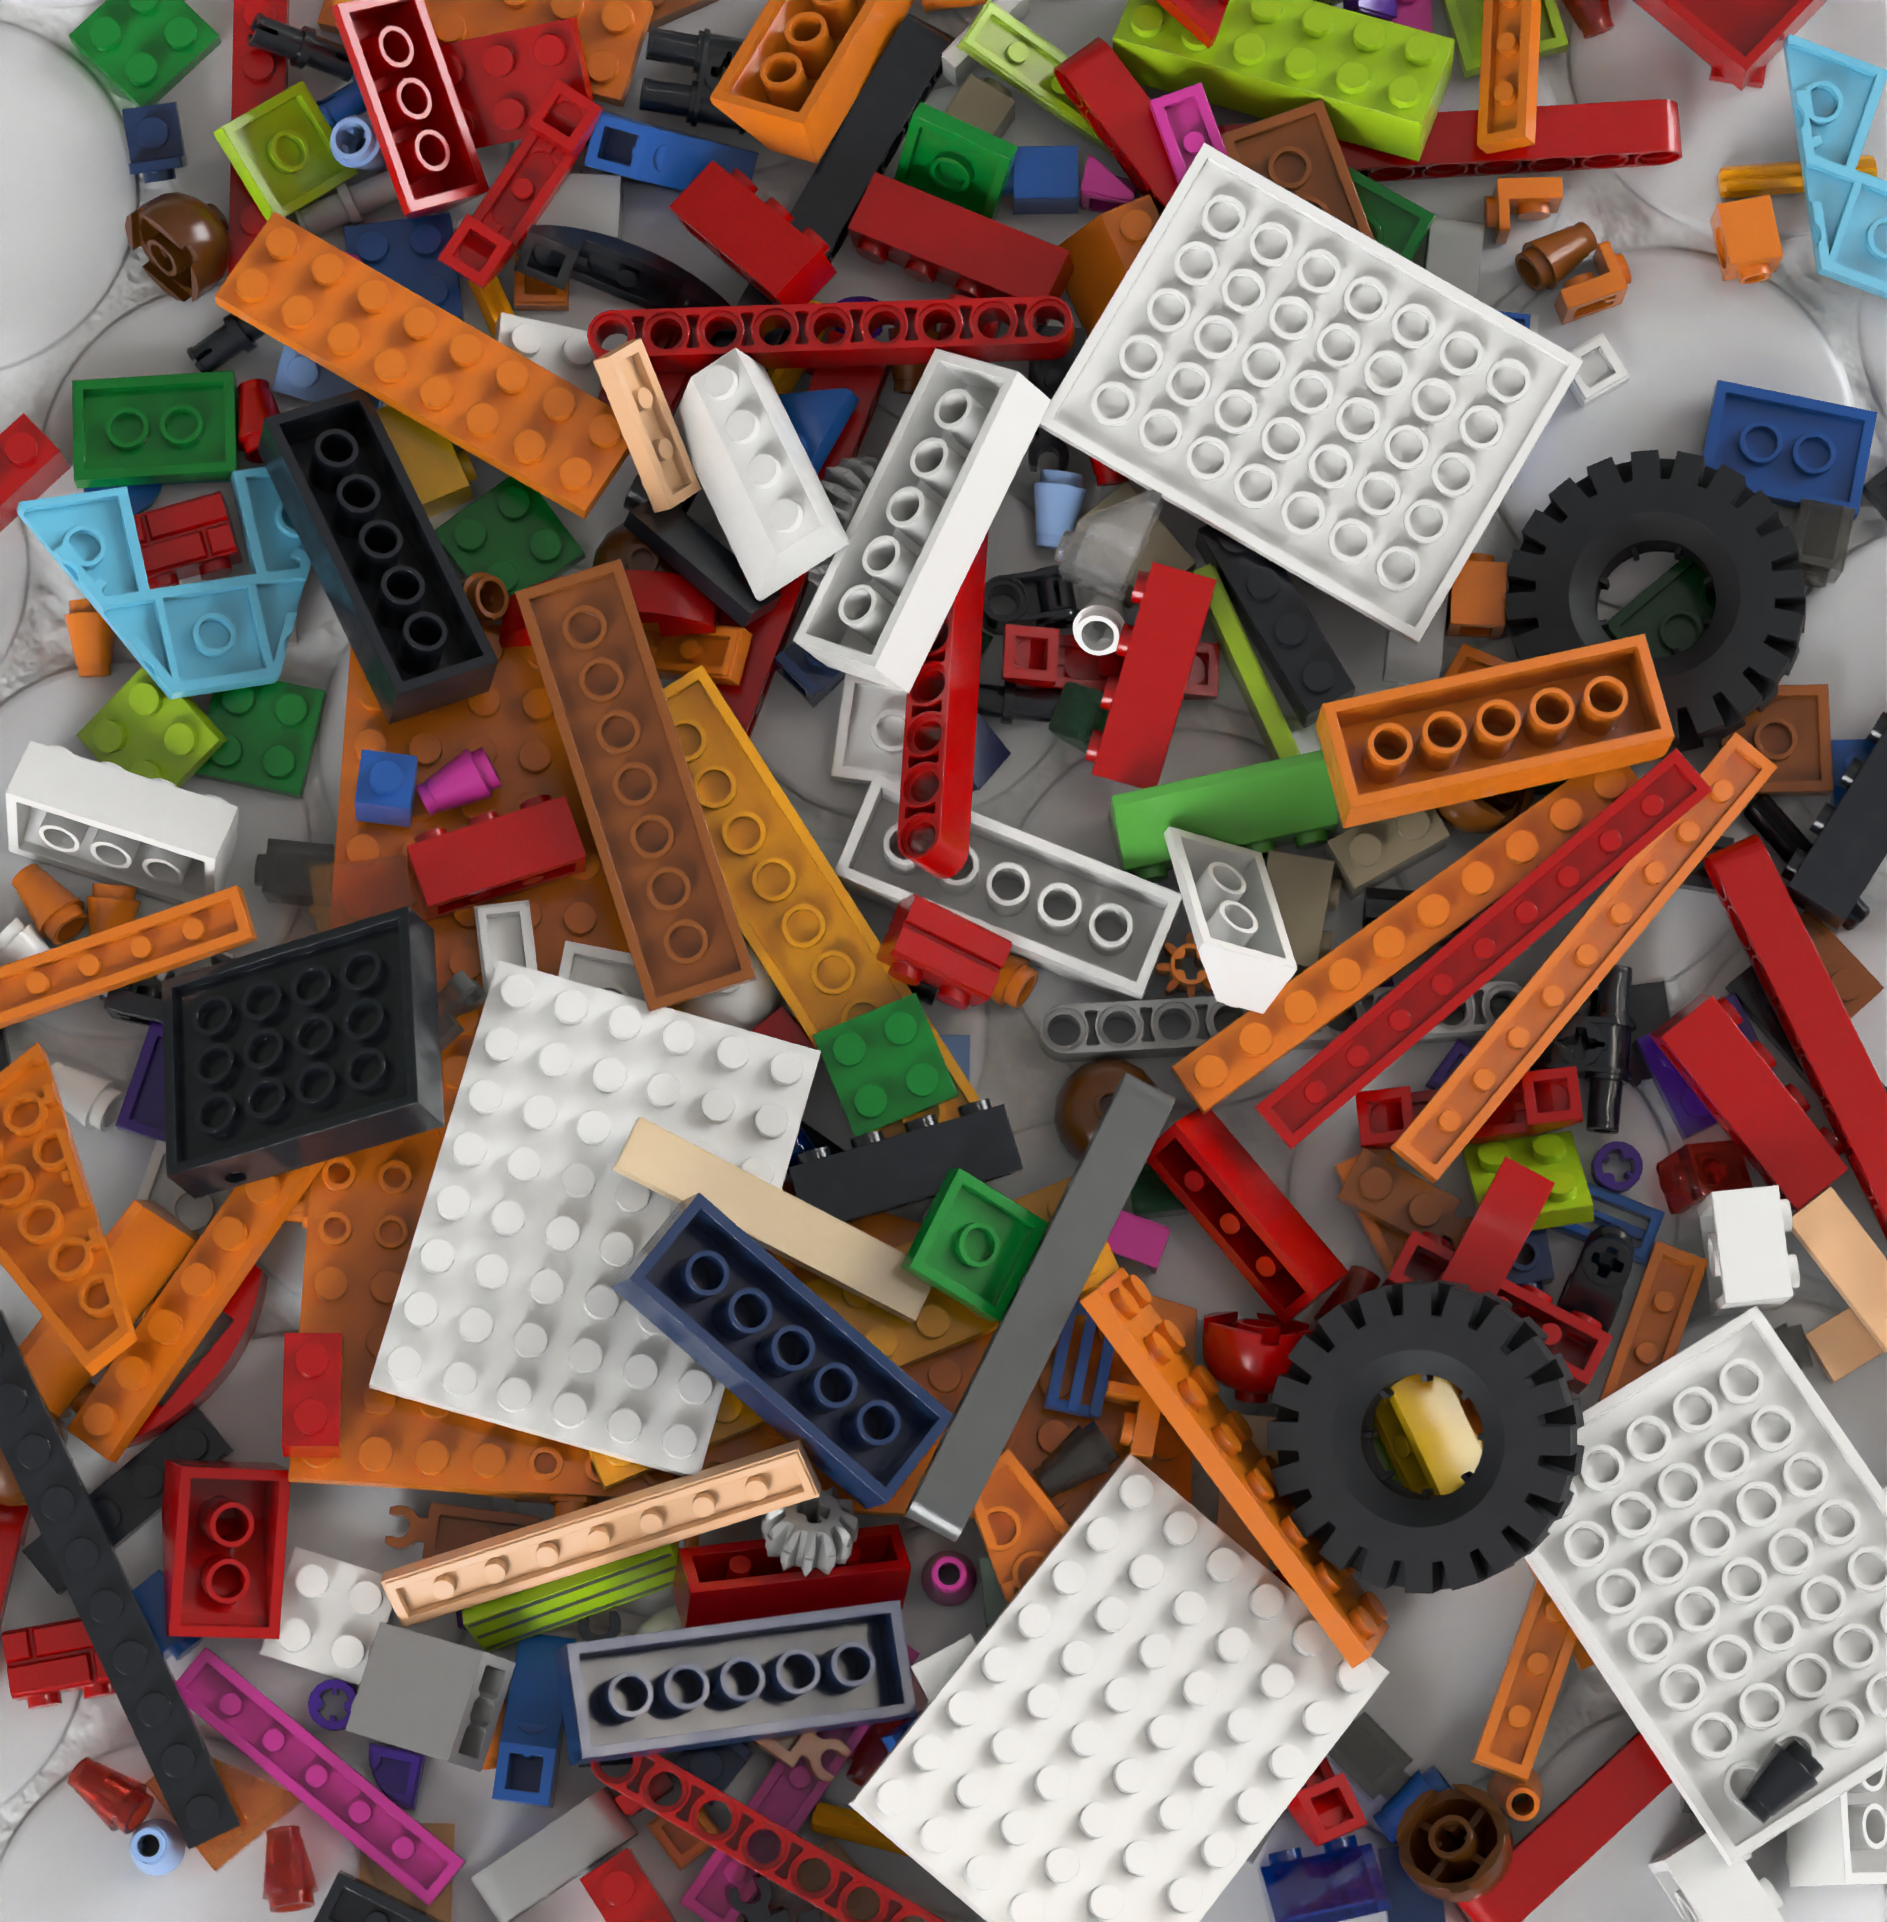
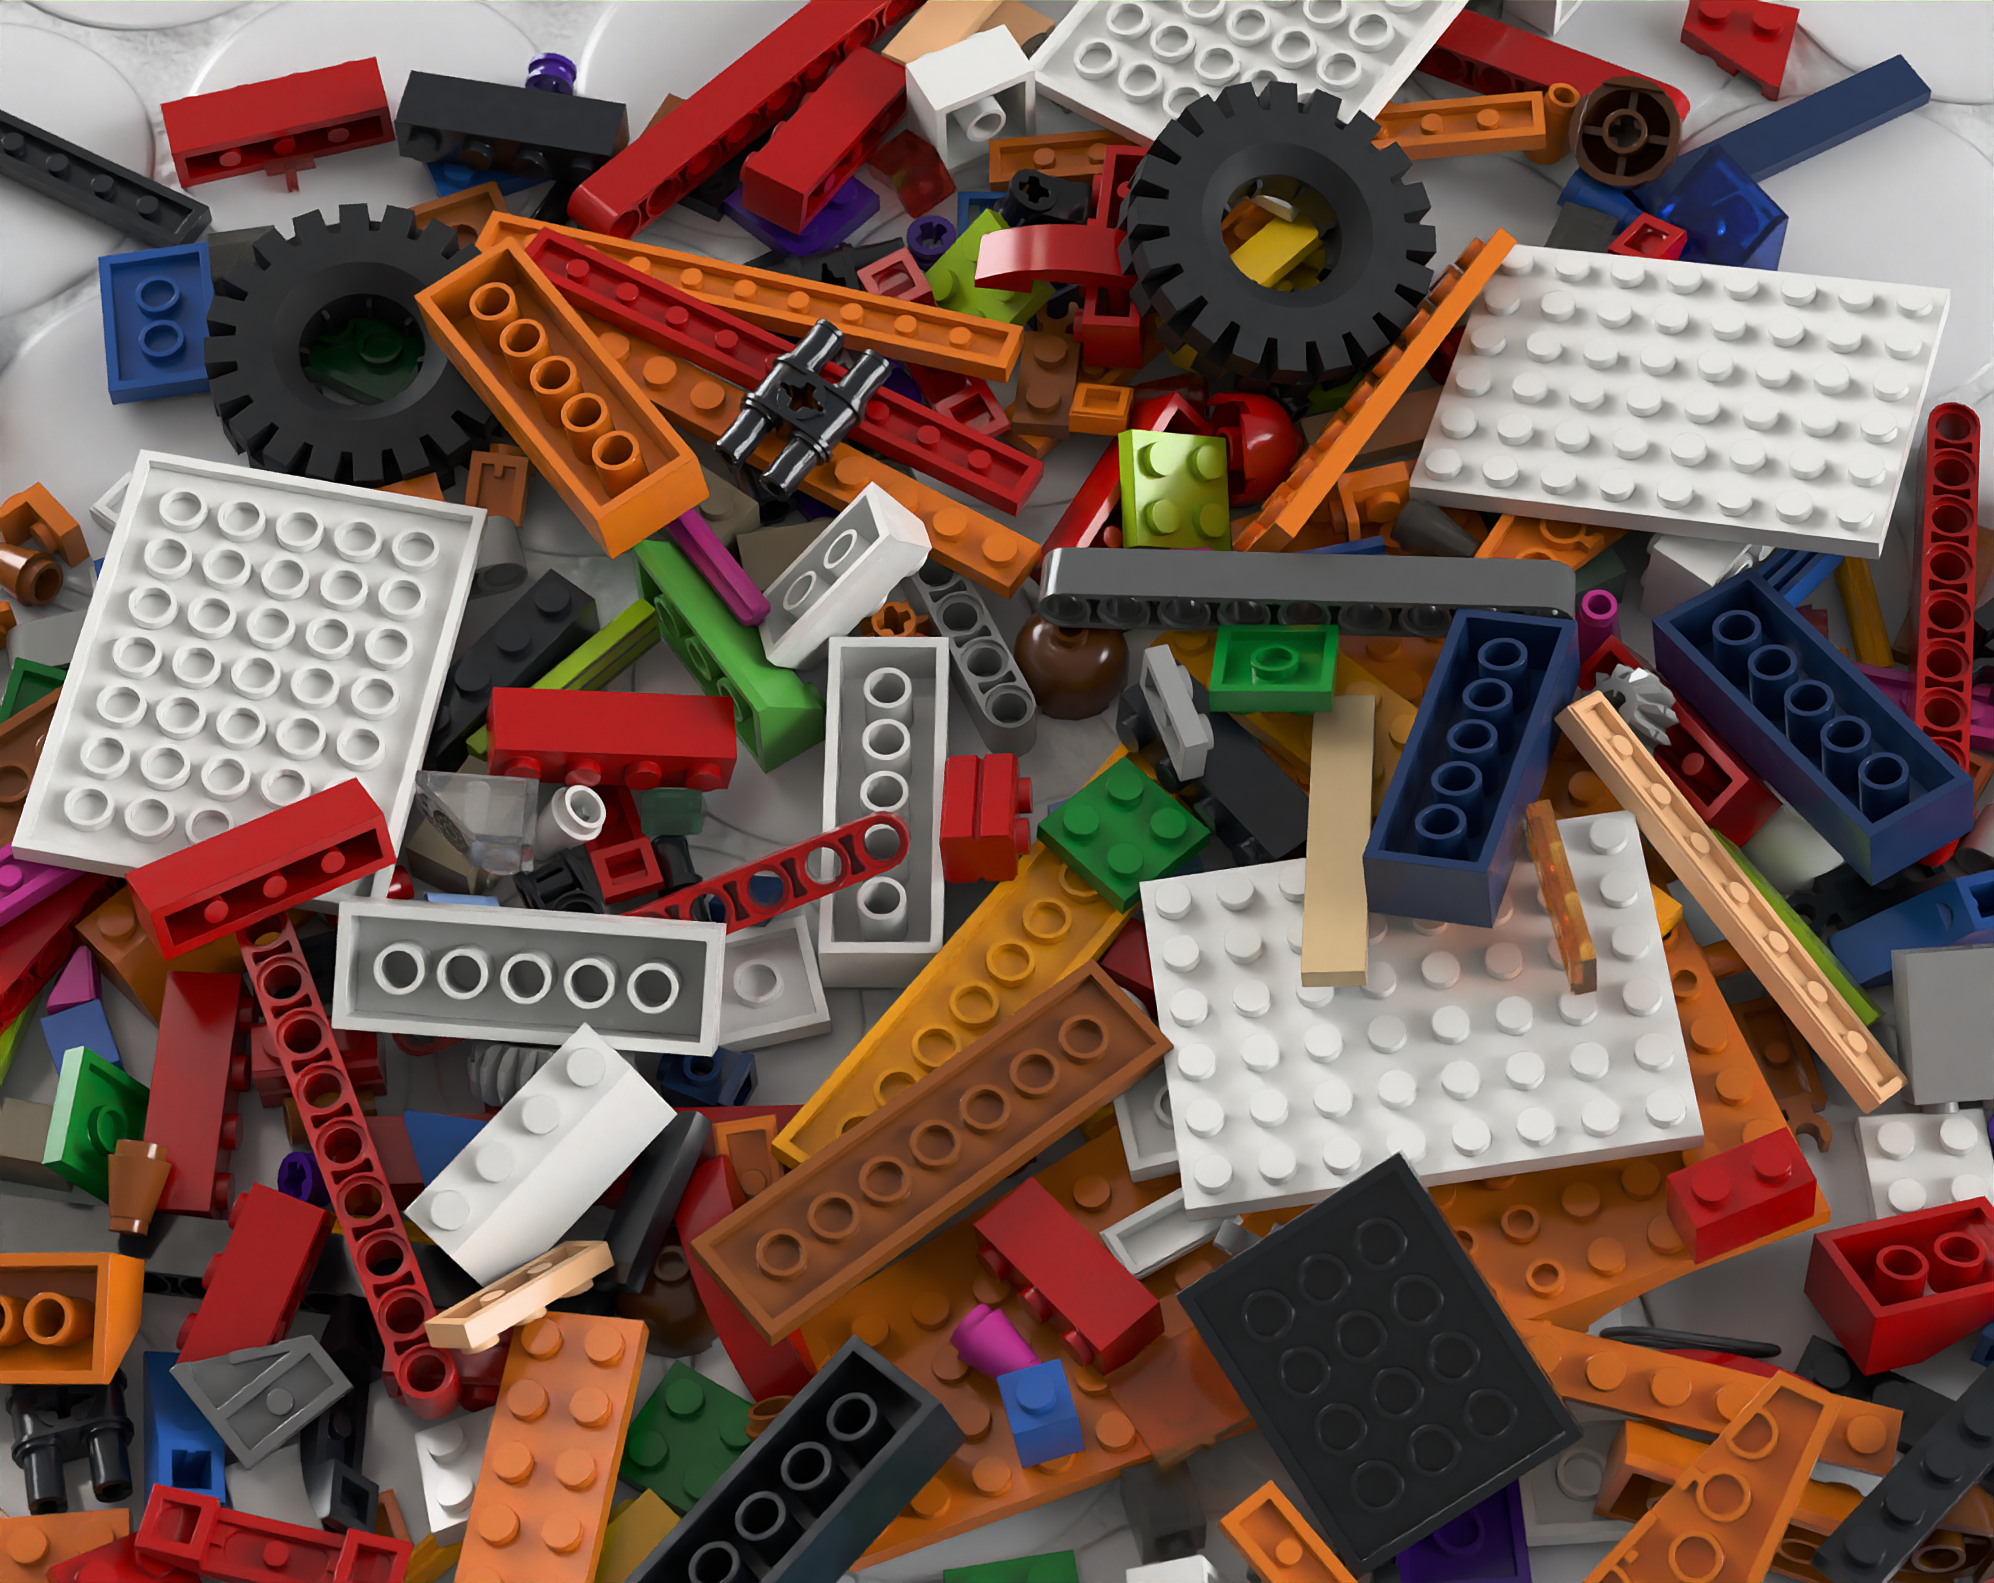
camera: 110 degrees left, 20 degrees down
(232, 1328) = (1634, 1336): none -> black piece
(620, 1360) = (1561, 898): none -> clear orange tile
(656, 214) = (263, 1393): none -> flat silver wing
(882, 172) = (135, 1184): none -> dark orange cone
(977, 1136) = (1170, 698): none -> light grey plate
(1090, 326) = (260, 868): none -> red brick
(1223, 1256) = (1173, 491): none -> lime plate
(1281, 826) = (719, 568): none -> dark pink axle
(1344, 1231) = (1101, 409): none -> orange tile
(1401, 972) = (808, 432): none -> black pin

